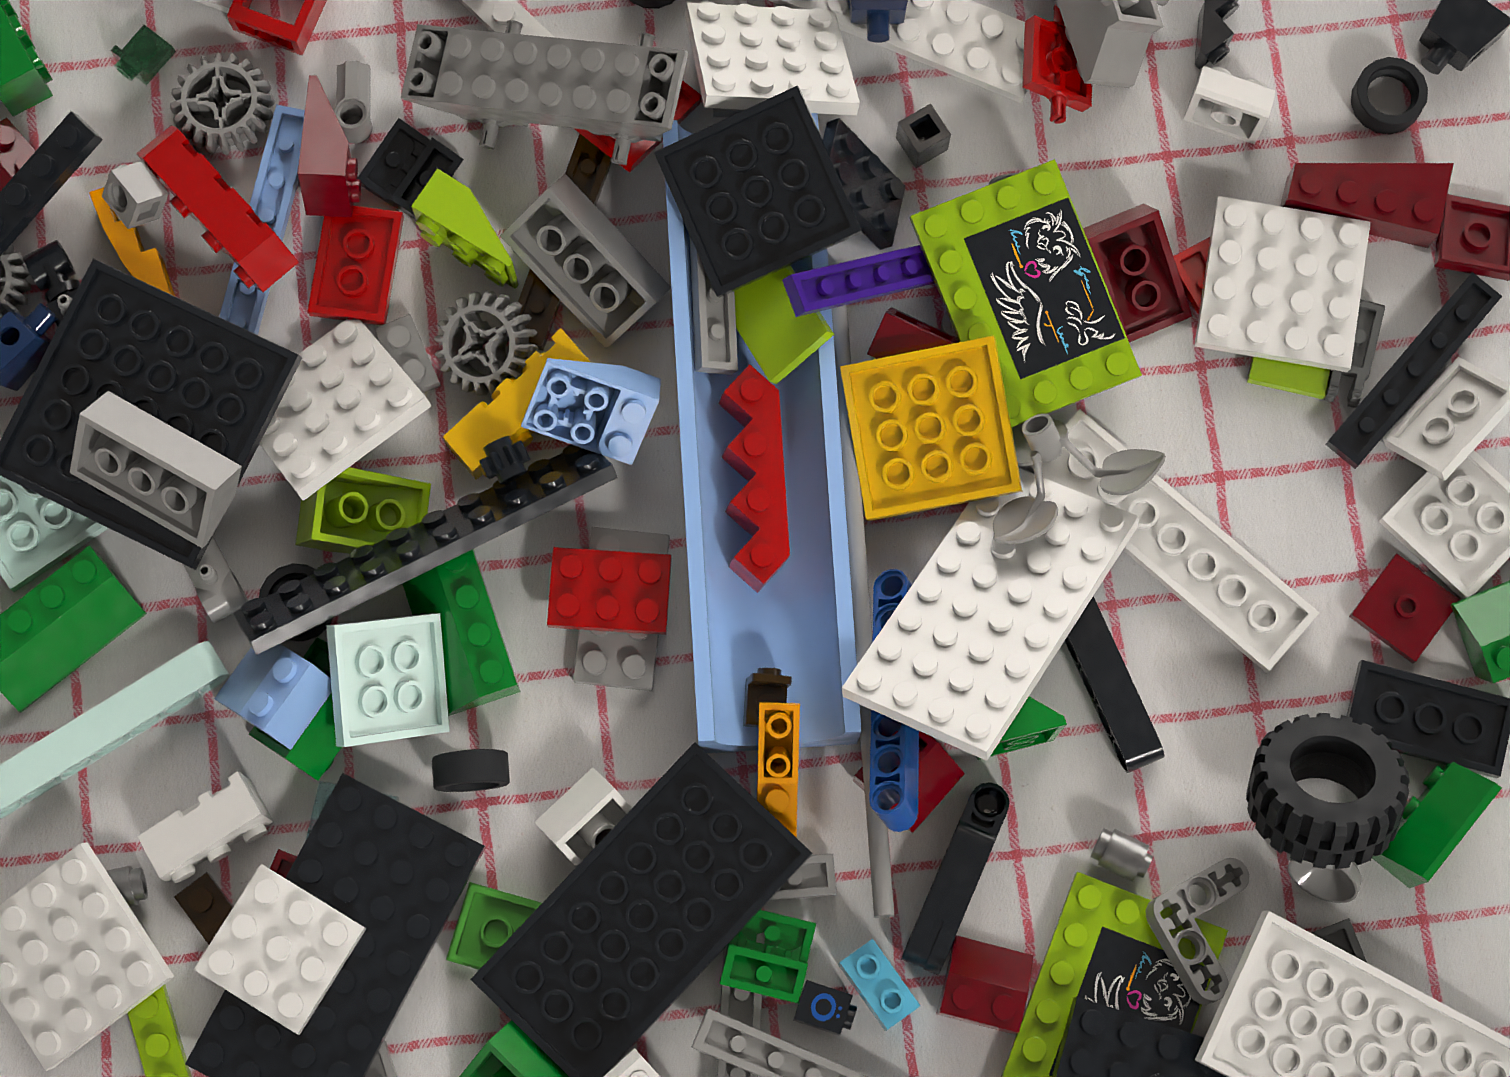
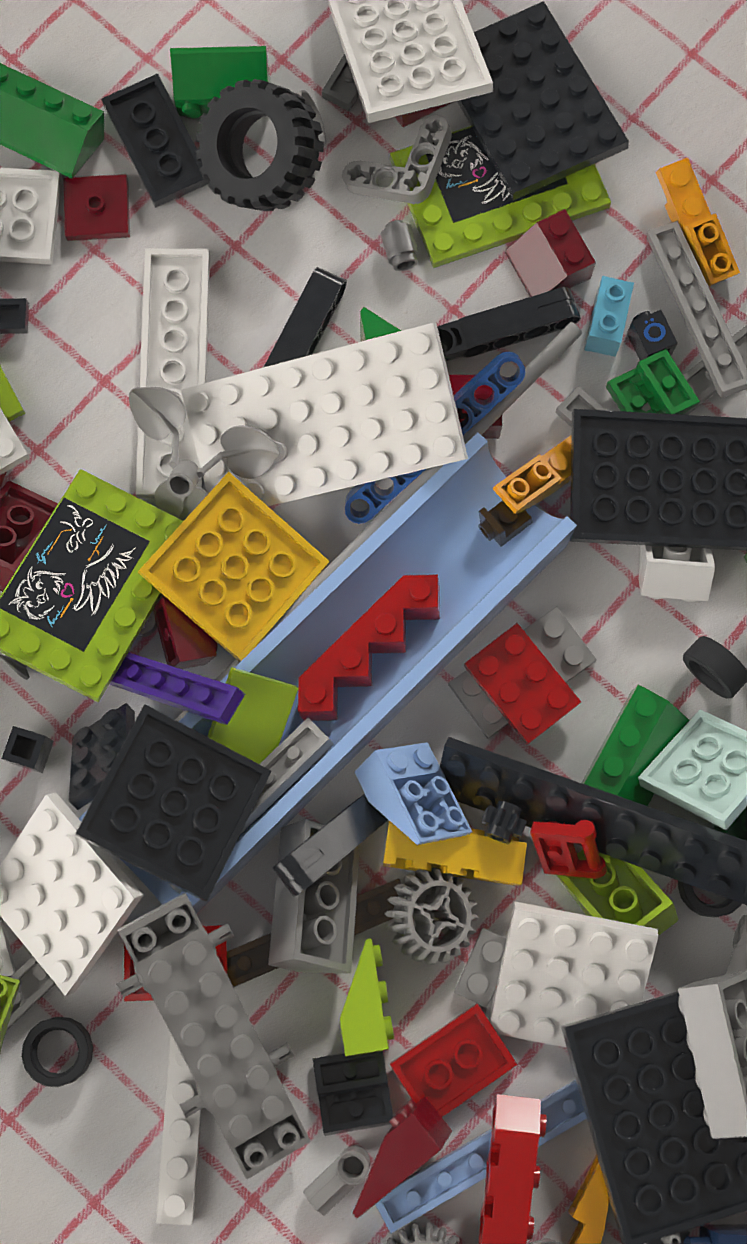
camera: 130 degrees left, 0 degrees up
(434, 497) = (557, 850): none -> red plate
(616, 296) = (329, 845): none -> piece

